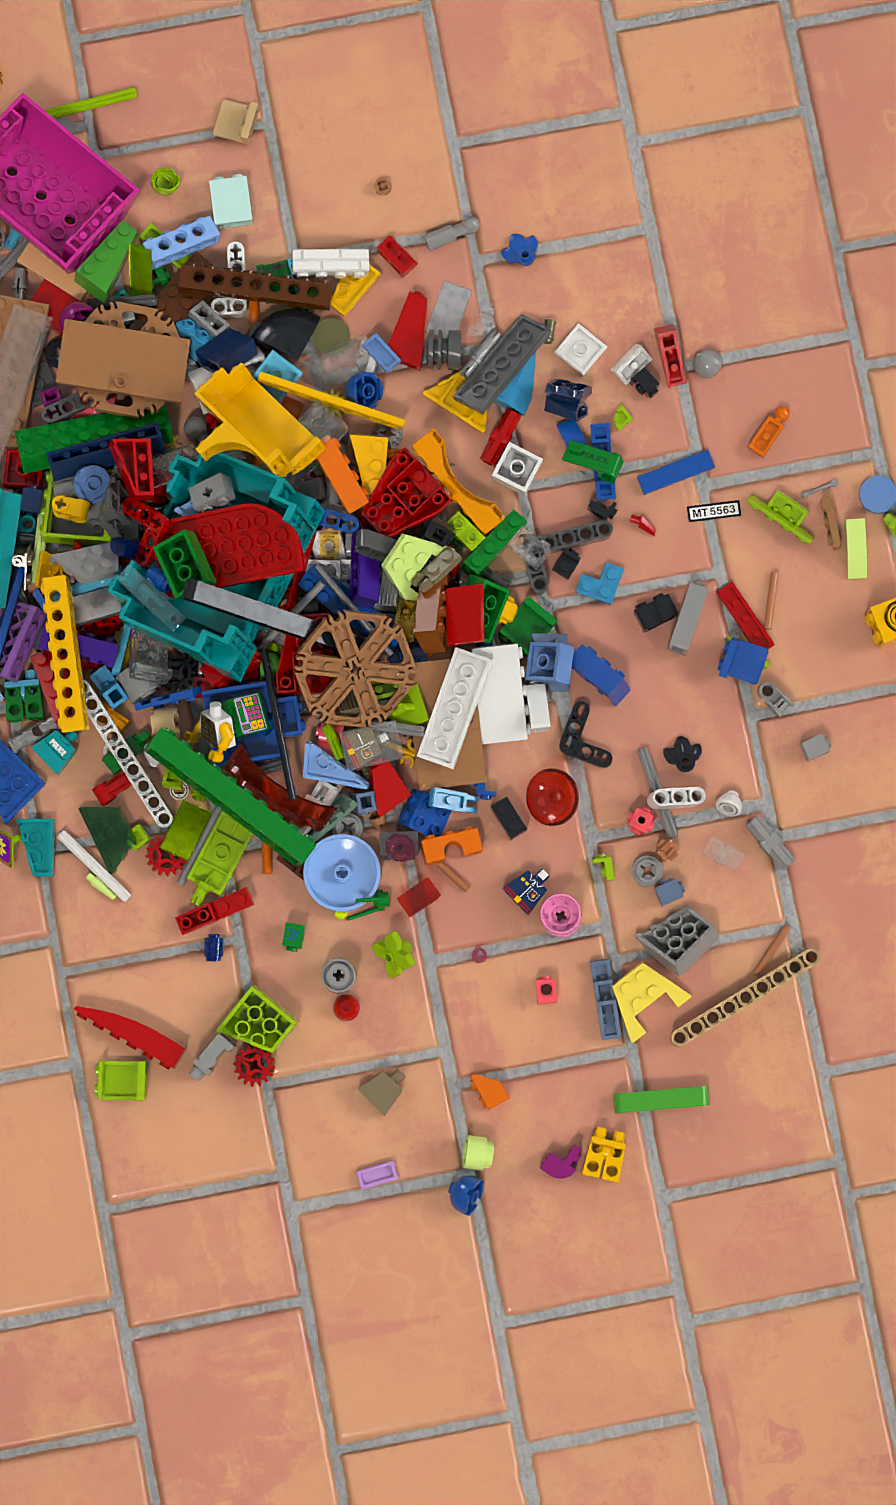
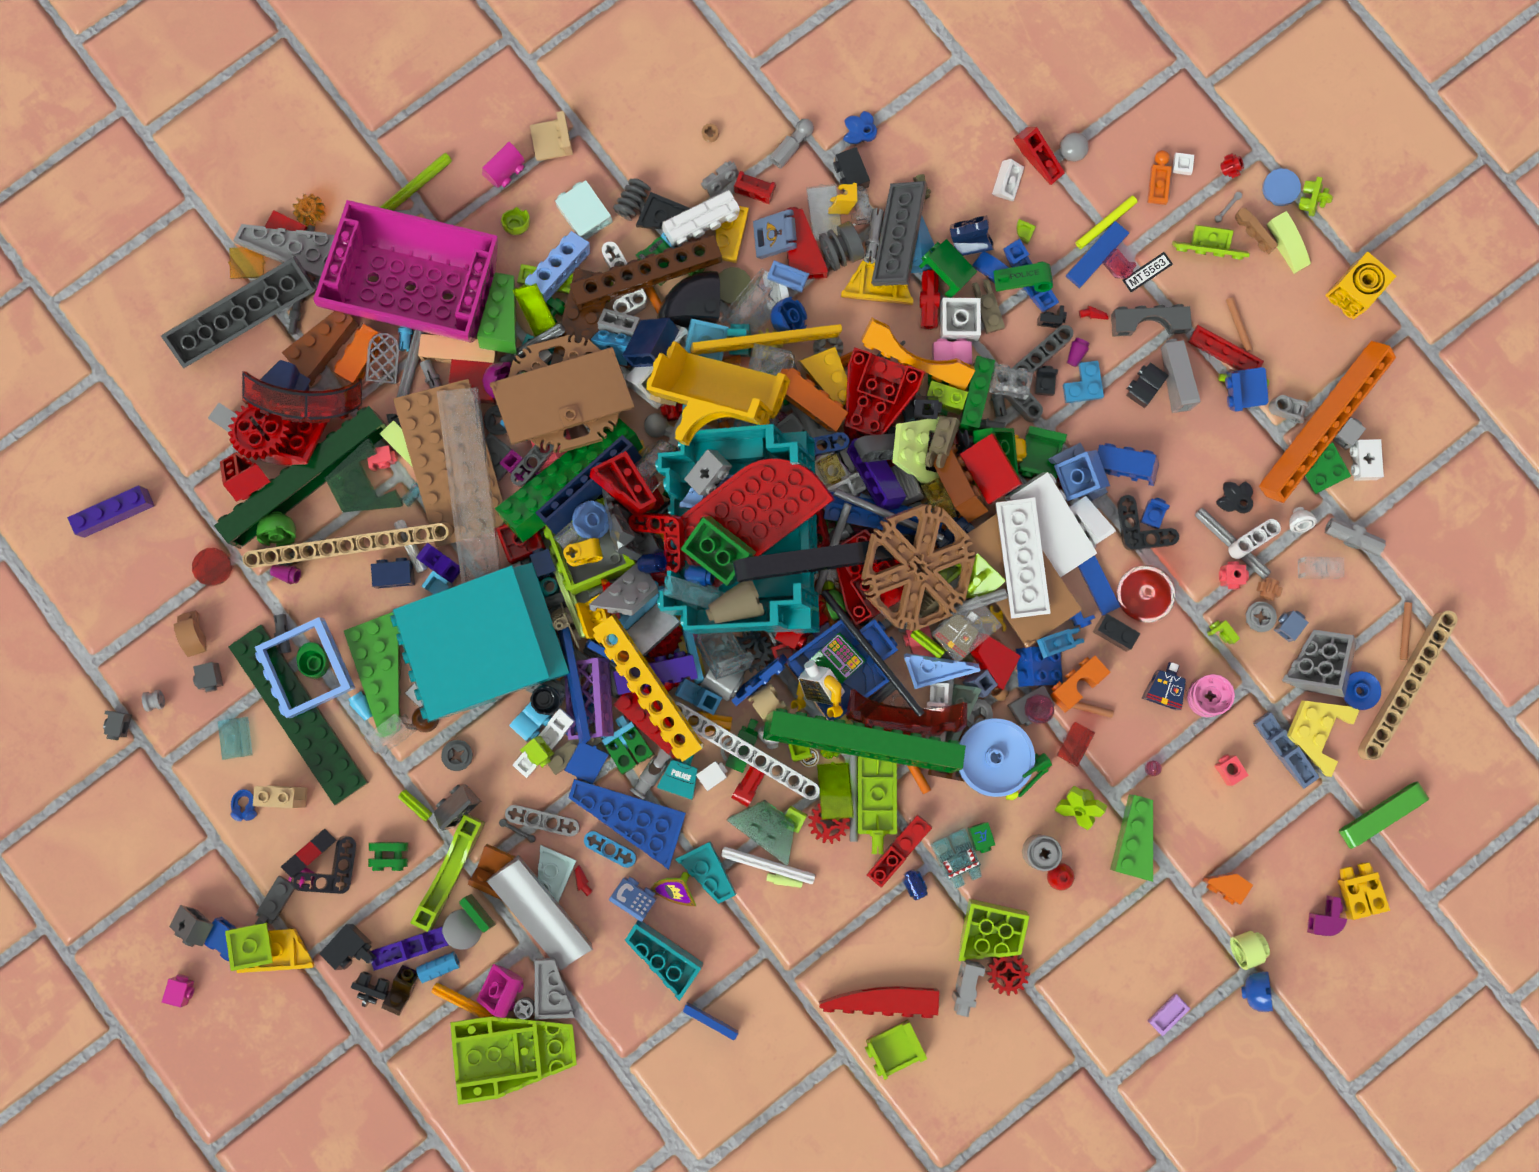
camera: 30 degrees left, 0 degrees up
(85, 761) = (712, 775): none -> white brick
(174, 618) = (736, 604): none -> dark tan cone
(179, 126) = (503, 166): none -> dark pink brick
(259, 948) = (956, 864): none -> clear light blue hips
(279, 212) = (630, 198): none -> dark grey piece
(298, 236) = (657, 210): none -> black wing
(311, 381) = (739, 330): none -> teal brick
(362, 235) = (726, 174): none -> light grey hinge
(383, 1090) = (1135, 935): dark tan torso -> none
(389, 308) = (777, 232): none -> sand blue container
(423, 1014) = (1135, 840): none -> bright green wedge
(468, 311) = (845, 202): none -> yellow hinge
(492, 284) = (851, 168): none -> black brick
(501, 496) = (949, 350): none -> bright pink brick
(513, 561) = (998, 402): none -> dark grey pin
(516, 769) = (1099, 585): none -> blue tile
(530, 416) = (949, 266): none -> green panel
(550, 472) = (990, 311): none -> dark tan hinge
(580, 349) = (958, 189): white tile -> none
(601, 730) = (1154, 512): none -> blue bracket
(609, 551) = (1077, 351): none -> magenta cone
(645, 383) = (1031, 189): black brick -> none
(669, 545) = (1174, 319): none -> dark grey arch
(688, 491) = (1118, 264): none -> clear pink bracket
(699, 447) = (1106, 222): none -> neon yellow piece
(711, 981) = (1370, 690): none -> blue dish
(776, 768) = (1327, 470): none -> green hinge
(798, 428) = (1183, 164): none -> white plate
(800, 727) = (1327, 421): none -> orange brick
(826, 772) = (1372, 452): none -> white brick
(841, 452) = (1232, 165): none -> red gear

